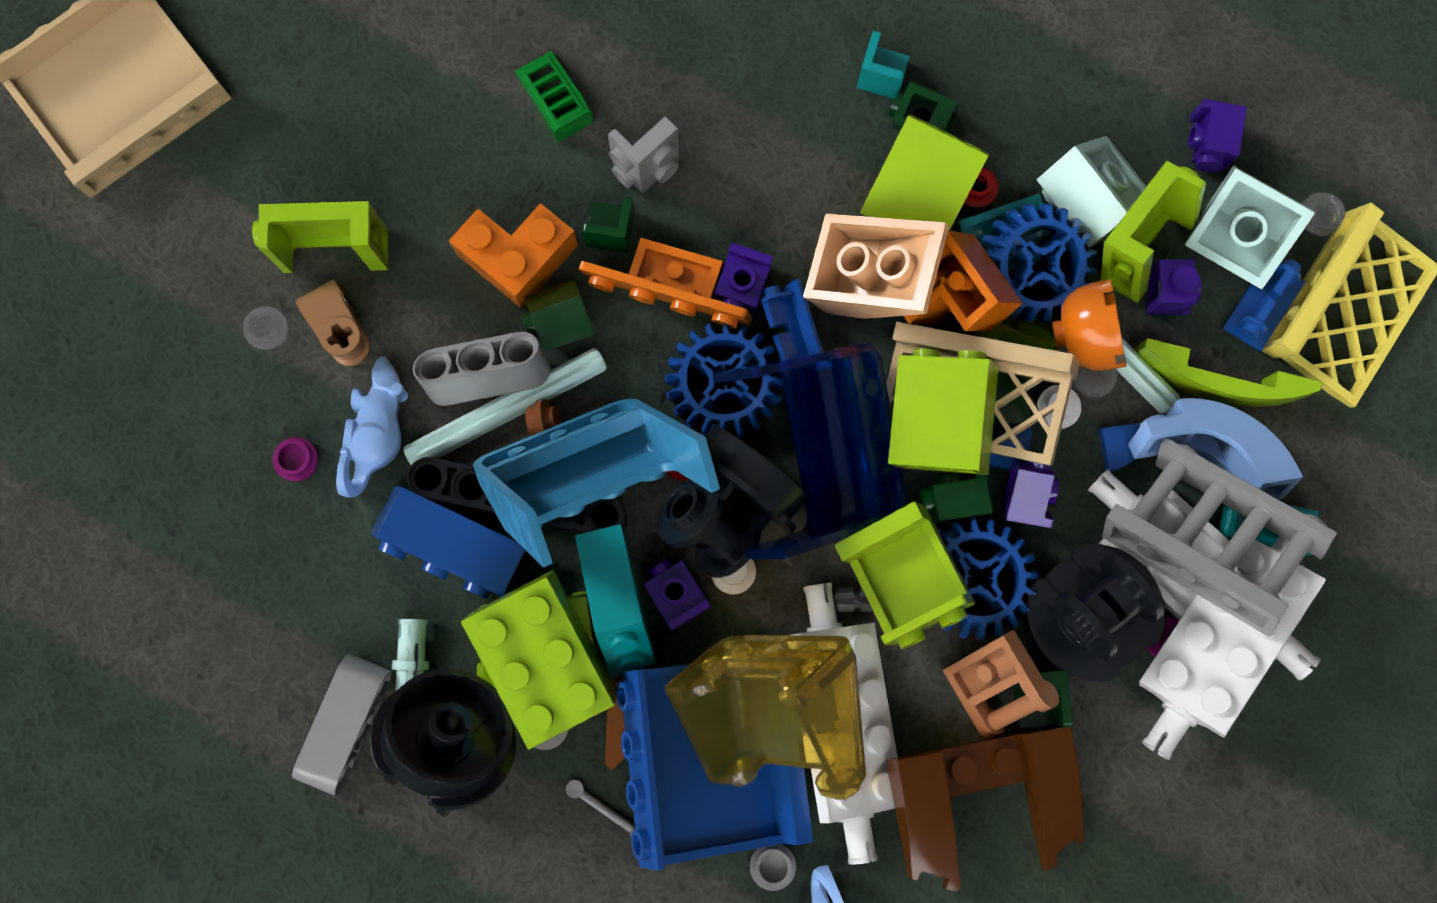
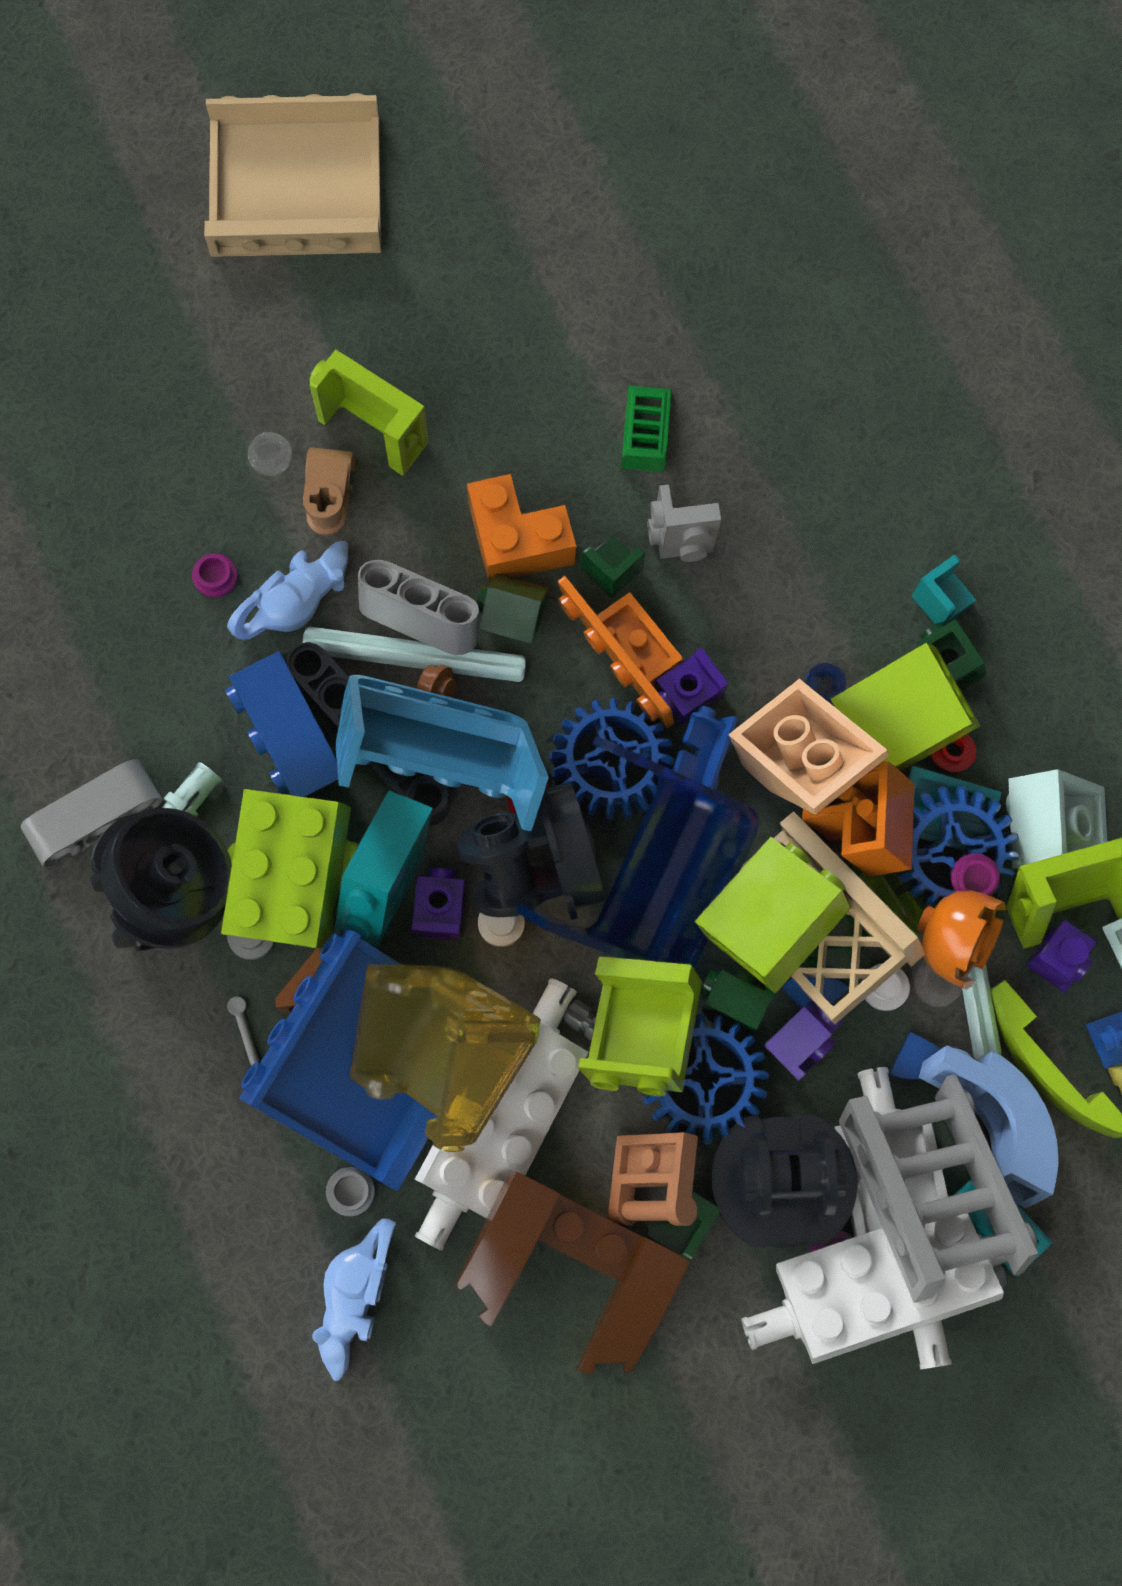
camera: 35 degrees right, 5 degrees down
(854, 198) = (833, 672): none -> clear blue bush
(1072, 272) = (975, 873): none -> magenta plate

